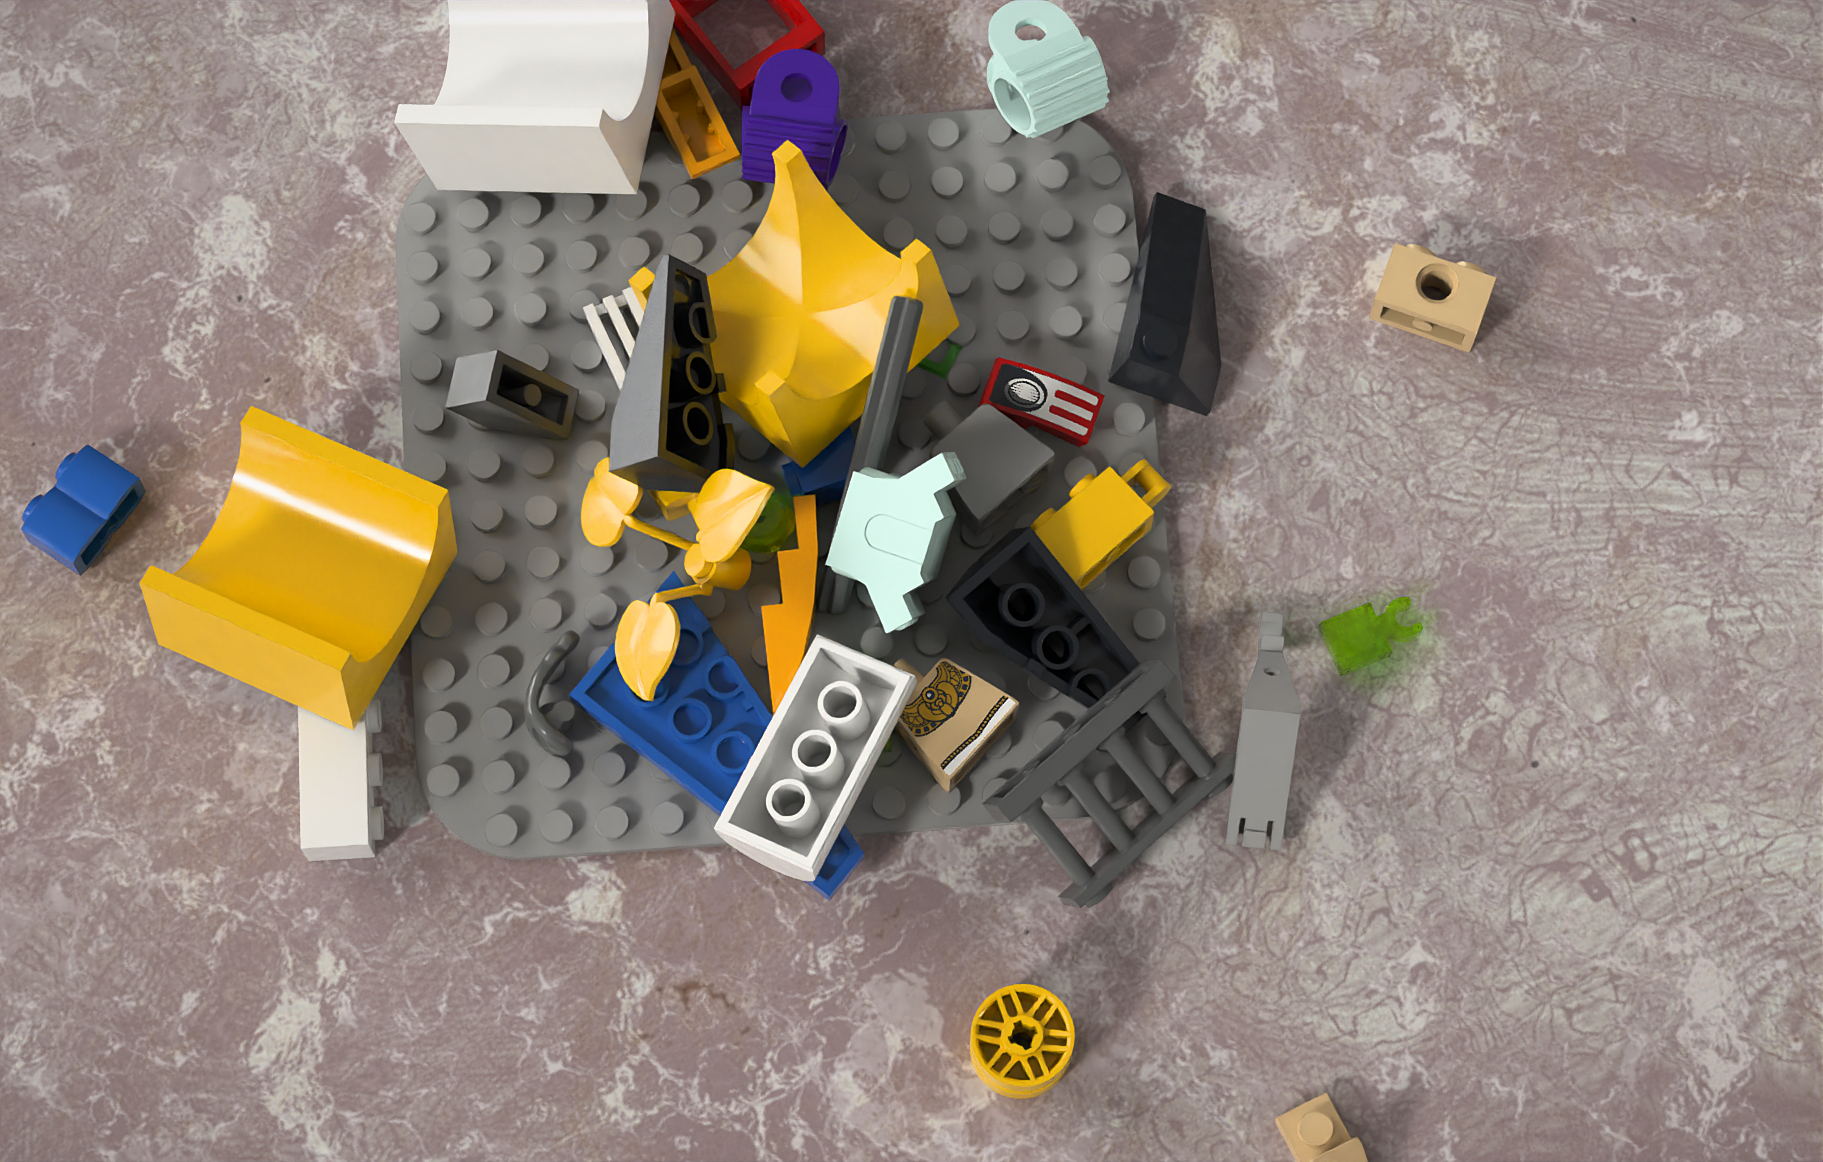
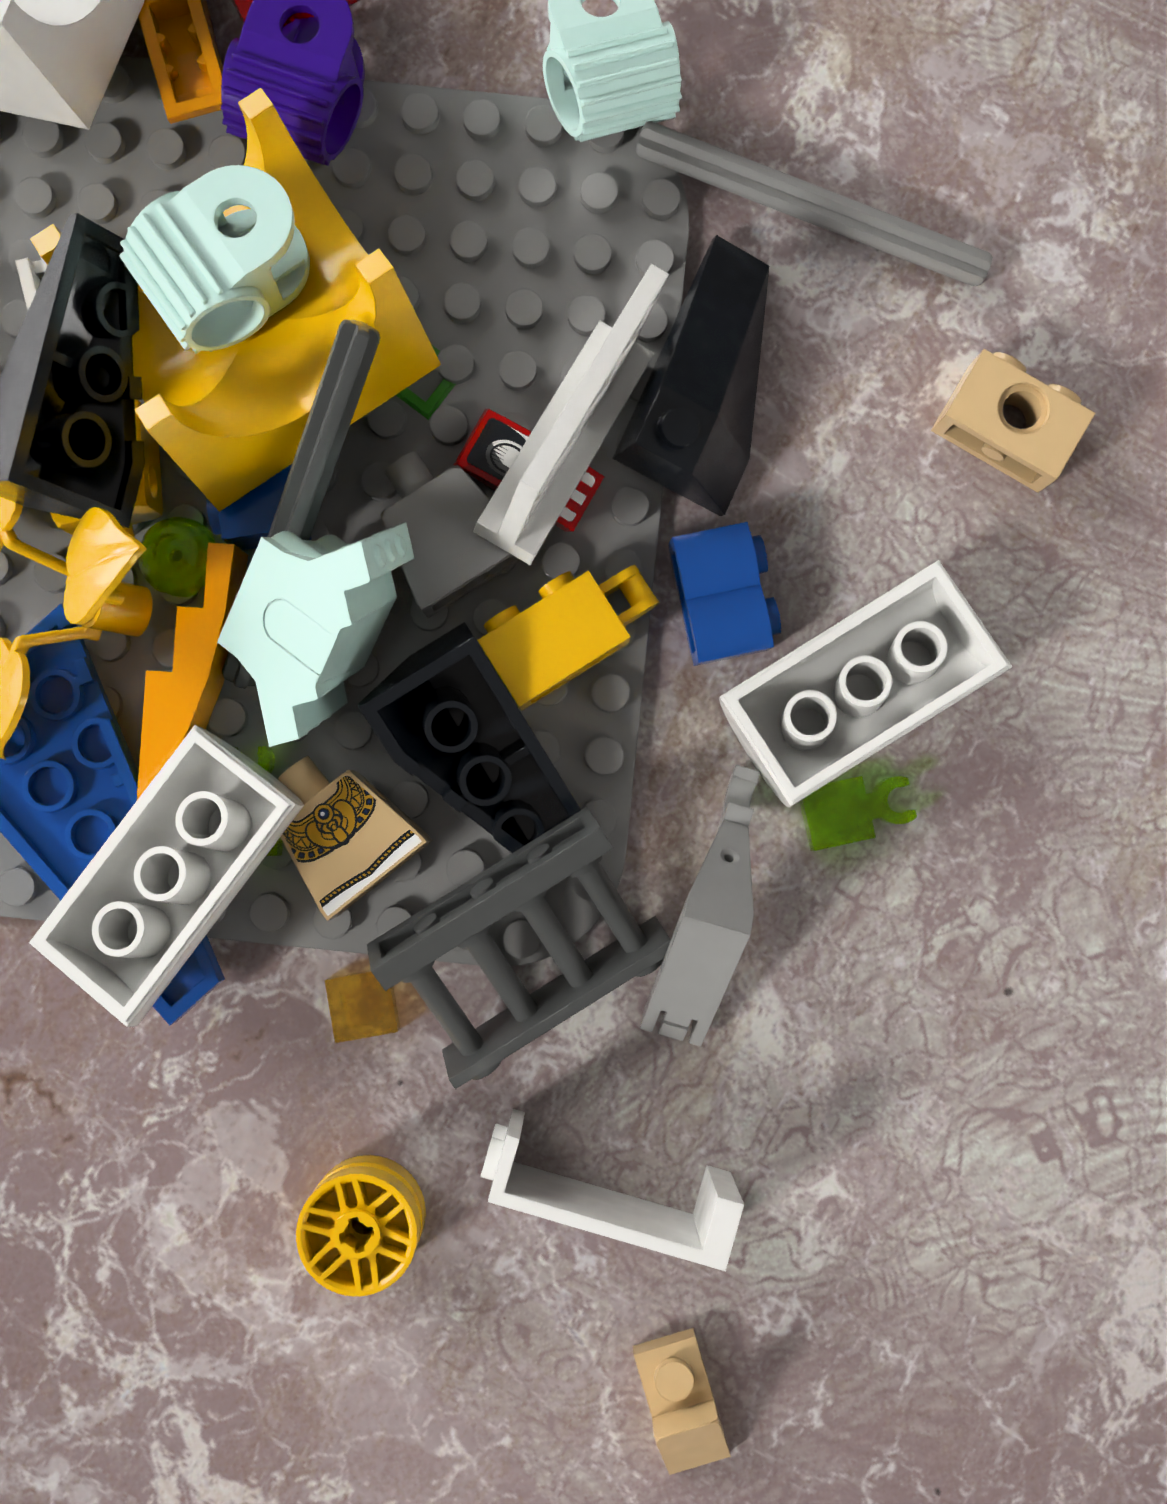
camera: 10 degrees right, 15 degrees up
(778, 277) = (213, 270): none -> light aqua piece
(982, 868) = (360, 1007): none -> clear yellow tile
(1072, 360) = (571, 429): none -> white fence
(1221, 474) = (723, 593): none -> blue brick
(1227, 984) = (697, 1237): none -> white panel
(1232, 155) = (813, 204): none -> light grey axle
(1350, 524) = (862, 684): none -> white brick

